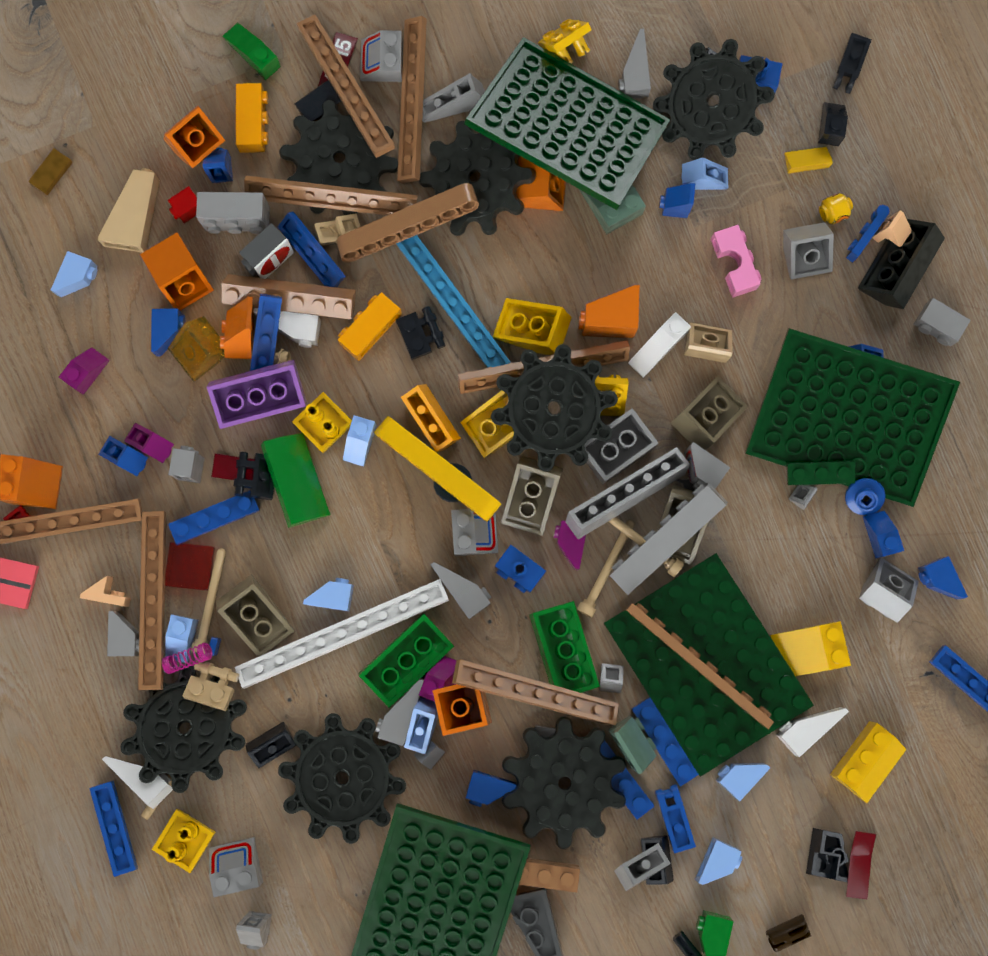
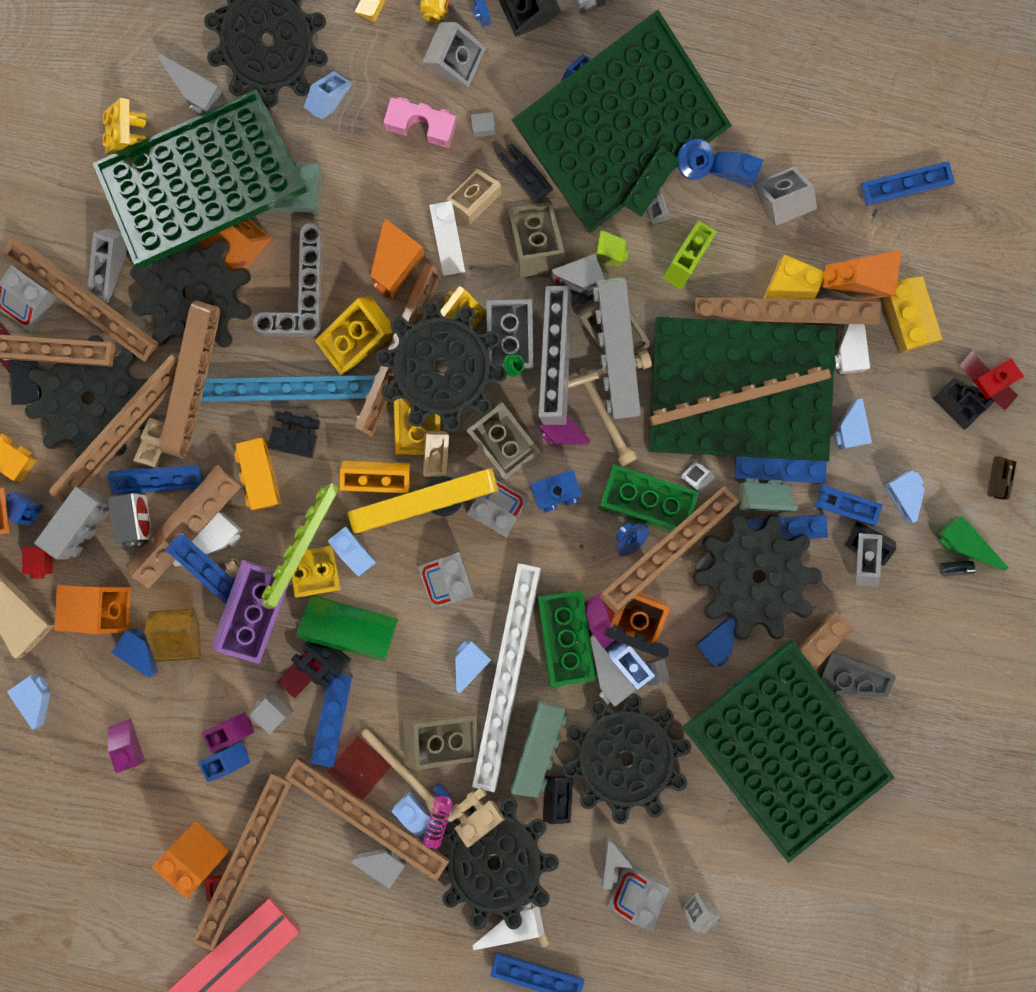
camera: 55 degrees left, 5 degrees up
(101, 593) = (330, 859): light nougat slope -> none
(183, 840) = (587, 925): yellow plate -> none
(238, 331) = (183, 590): orange slope -> none
(253, 824) = (613, 858): none -> light grey slope
(300, 699) = (537, 749): none -> sand green slope
(325, 395) = (295, 553): none -> lime plate
(387, 531) = (446, 580): none -> light grey slope
(441, 717) = (638, 641): none -> black hinge
(465, 592) = (547, 549): light grey slope -> none
(482, 453) = (435, 453): none -> tan plate
(523, 657) = (631, 538): none -> blue piece
(538, 264) = (305, 292): none -> light grey beam
(595, 464) = (513, 364): none -> green plate
(678, 200) = (333, 133): blue slope -> none
(743, 479) = (611, 250): none -> lime slope
(754, 372) = (526, 175): none -> black hinge
(769, 311) = (483, 124): none -> light grey slope
(785, 545) = (689, 255): none -> lime slope
(798, 656) = (788, 310): none -> medium nougat plate
(868, 872) = (998, 378): none -> red plate
(871, 700) = (865, 276): none -> orange slope
(942, 578) = (806, 144): blue slope -> none

